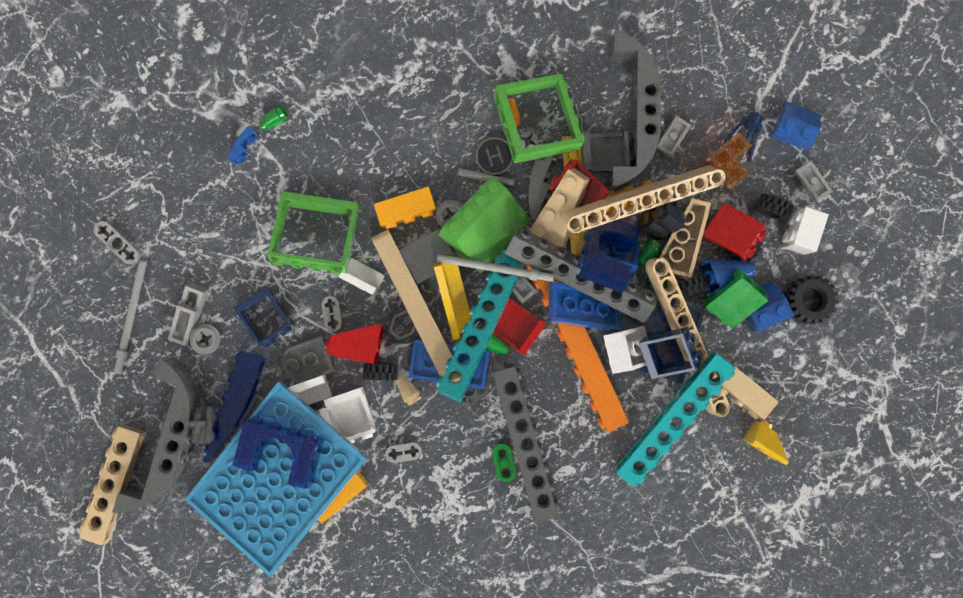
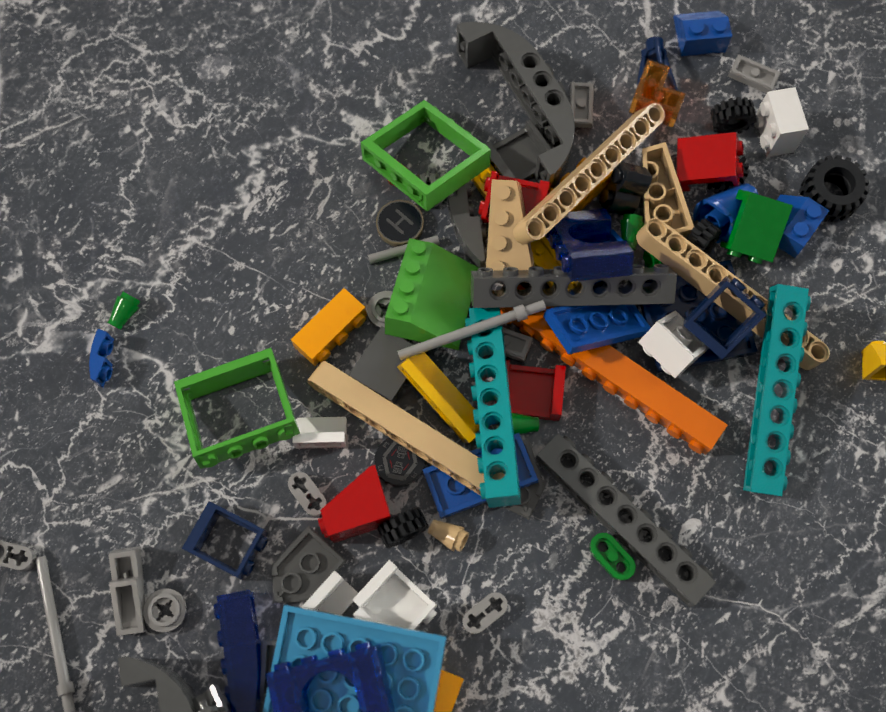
camera: 30 degrees left, 15 degrees down
(750, 395) = (840, 323): tan brick -> none

